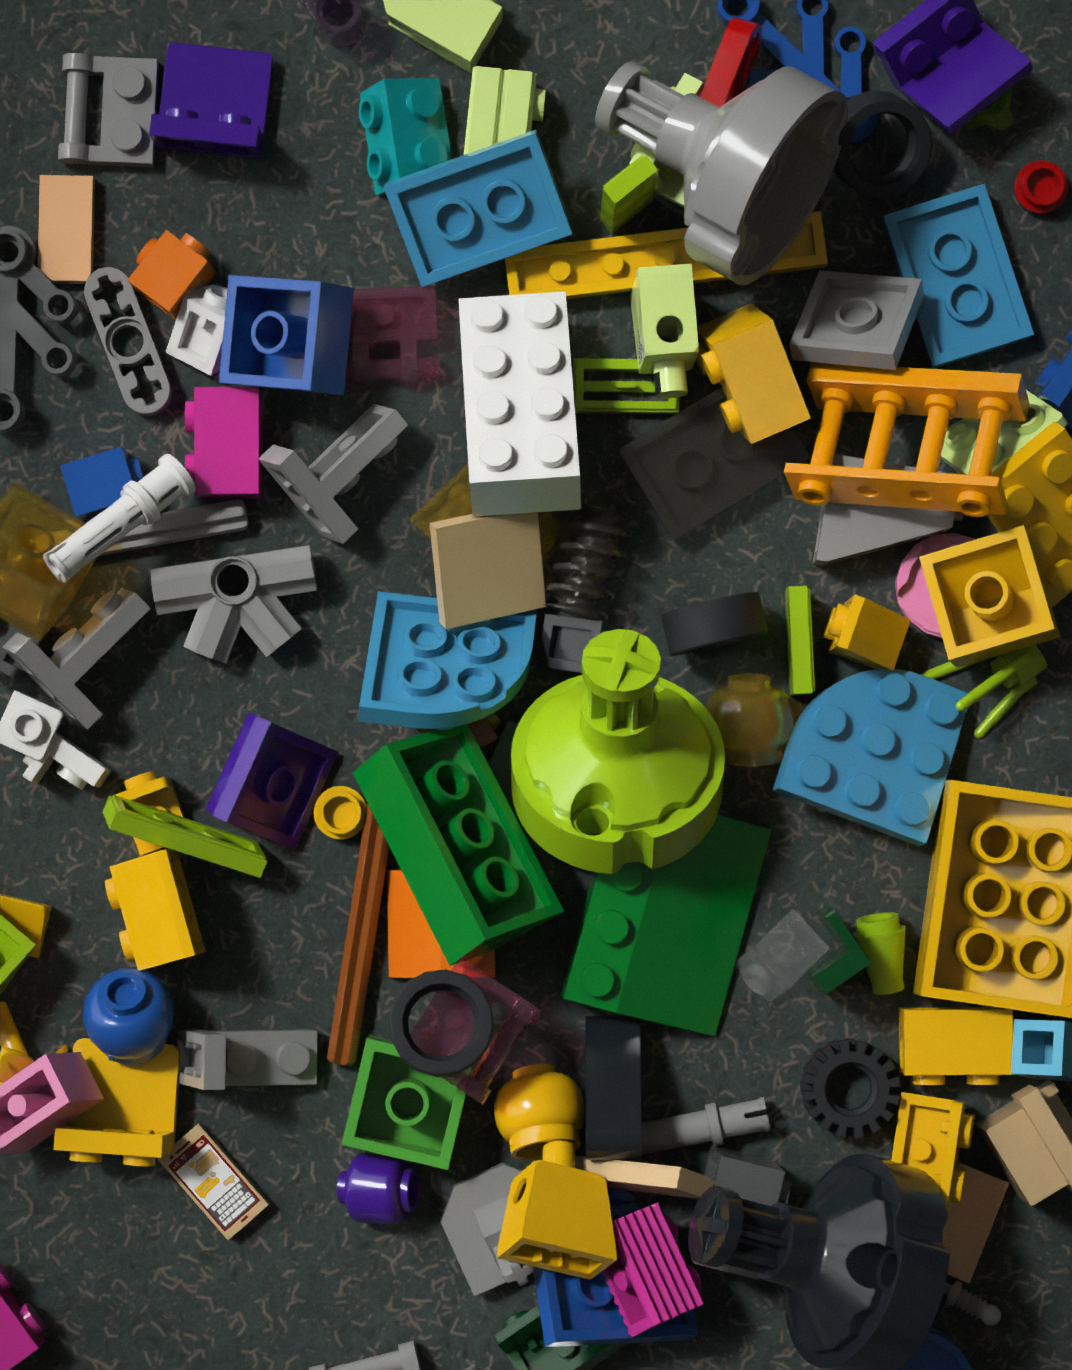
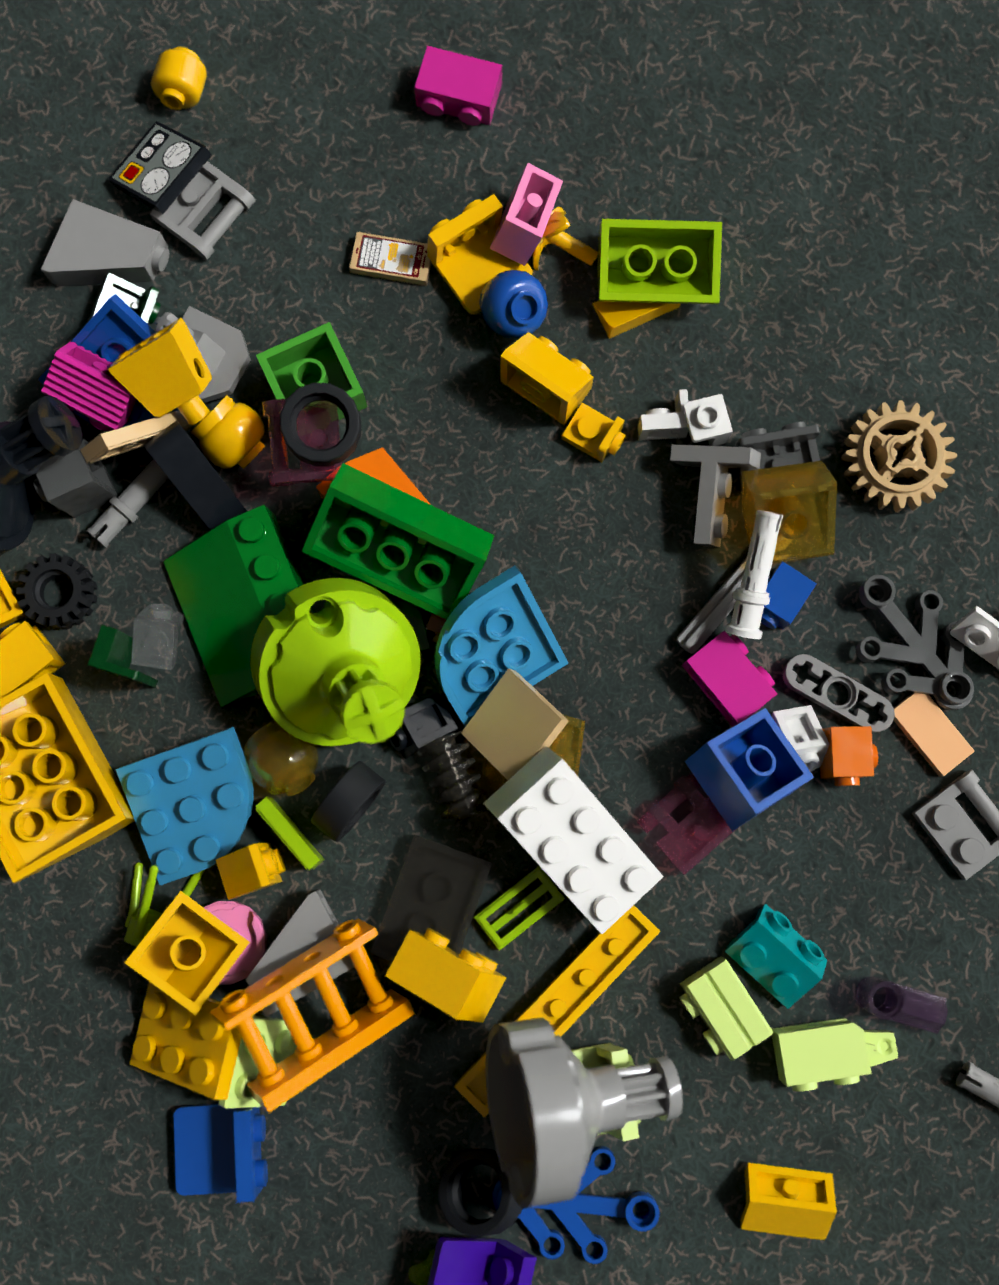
camera: 140 degrees right, 5 degrees down
(184, 835) = (564, 427): lime tile -> none
(213, 101) = (911, 881): dark purple bracket -> none
(221, 614) = (648, 577): light grey piece -> none
(246, 1057) = (427, 334): light grey bracket -> none
(271, 781) = (540, 500): dark purple bracket -> none
(334, 470) = (652, 715): light grey bracket -> none
(340, 812) = (487, 515): yellow plate -> none
(359, 944) = (410, 445): dark orange axle -> none
(379, 1189) = (289, 318): dark purple head -> none
(478, 208) = (697, 944): dark azure plate -> none
(628, 193) = (612, 1029): lime tile -> none
(665, 309) = (532, 975): yellowish green torso -> none
(732, 61) = (614, 1169): red beam -> none
(857, 319) = (405, 1064): light grey plate -> none
(884, 945) = (100, 689): lime cone -> none
(965, 274) = (366, 1146): dark azure plate -> none
(1040, 187) = (358, 1248): red plate -> none

